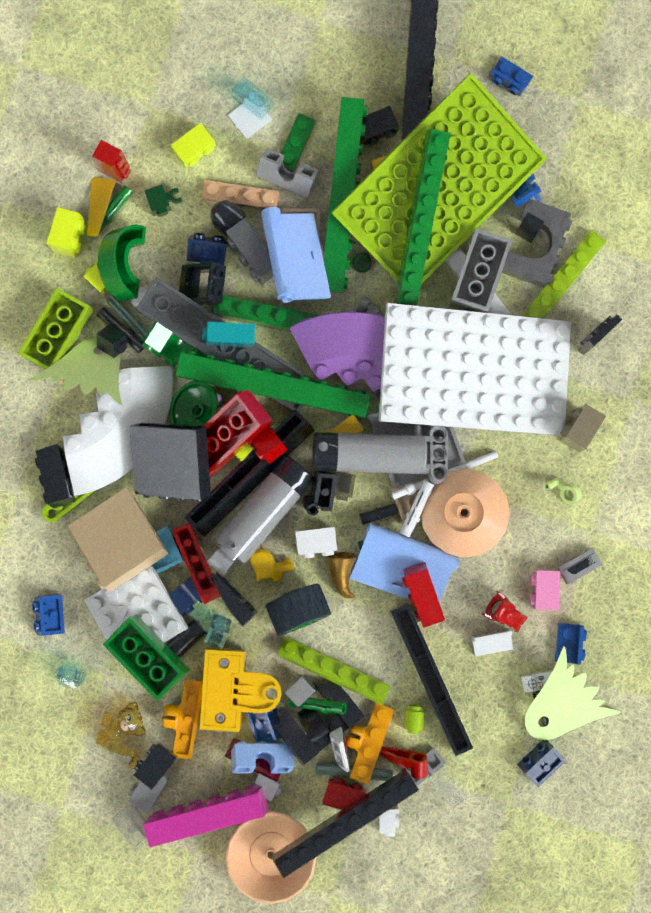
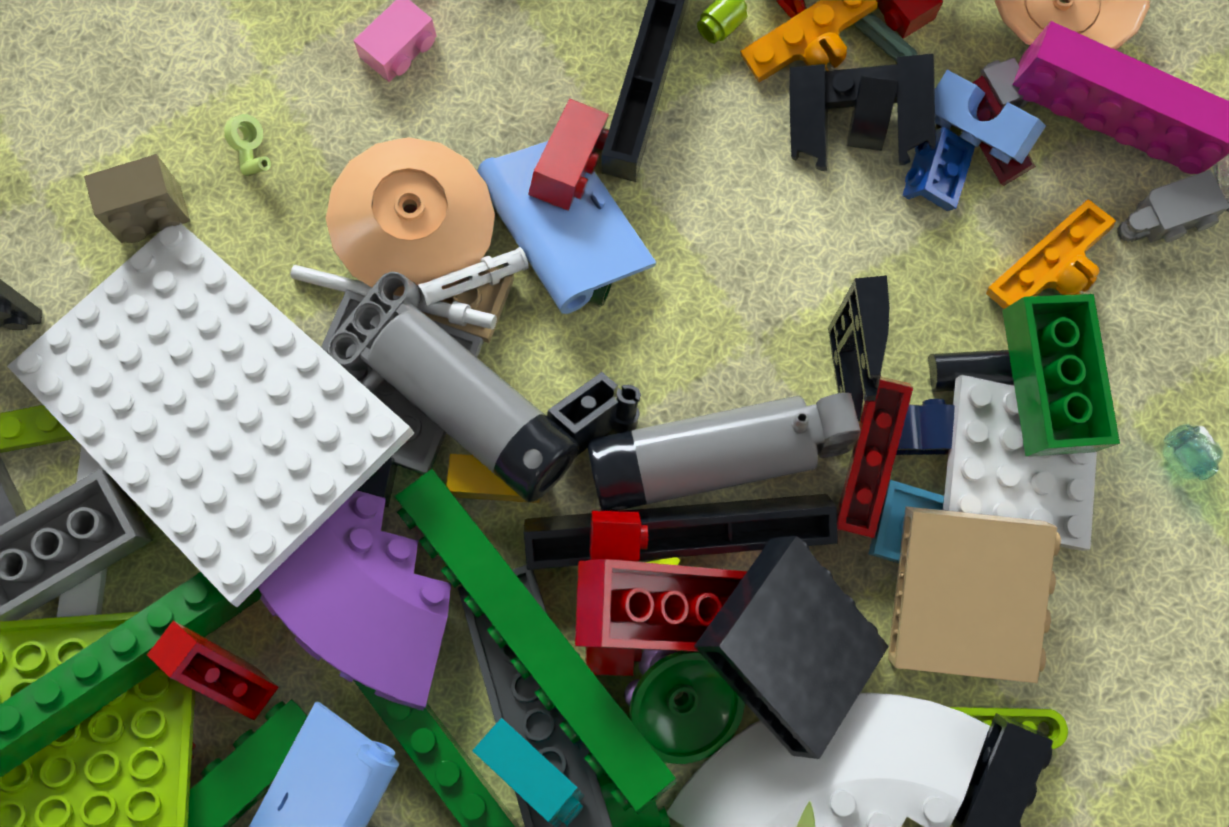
camera: 145 degrees left, 10 degrees down
(48, 615) = (1164, 569): blue bracket -> none
(128, 723) = (1149, 318): clear yellow animal -> none
(155, 765) = (1156, 218): black brick -> none
(218, 631) = (914, 338): clear light blue brick -> none
(232, 690) = (961, 235): yellow brick -> none
(266, 567) = (765, 376): yellow animal -> none
(298, 609) = (770, 267): black wheel -> none
(300, 691) = (854, 167): light grey panel -> none
(316, 541) = (661, 345): white brick -> none
(323, 705) = (849, 134): green pin -> none
(333, 670) = (784, 163): lime plate -> none
(339, 568) = (656, 289): pearl gold hat -> none
(340, 749) = (861, 49): white slope -> none
(344, 486) = (551, 390): clear smoke brick -> none
(362, 263) = (223, 726): dark green tile -> none
(367, 303) = (274, 630): light grey wheel -> none
(378, 277) = (212, 670): none -> red brick
(378, 513) = (535, 321): black axle -> none
(492, 642) = (529, 33): white panel -> none
(505, 613) = (472, 43): red hair -> none
(579, 566) = (321, 33): light grey slope -> none

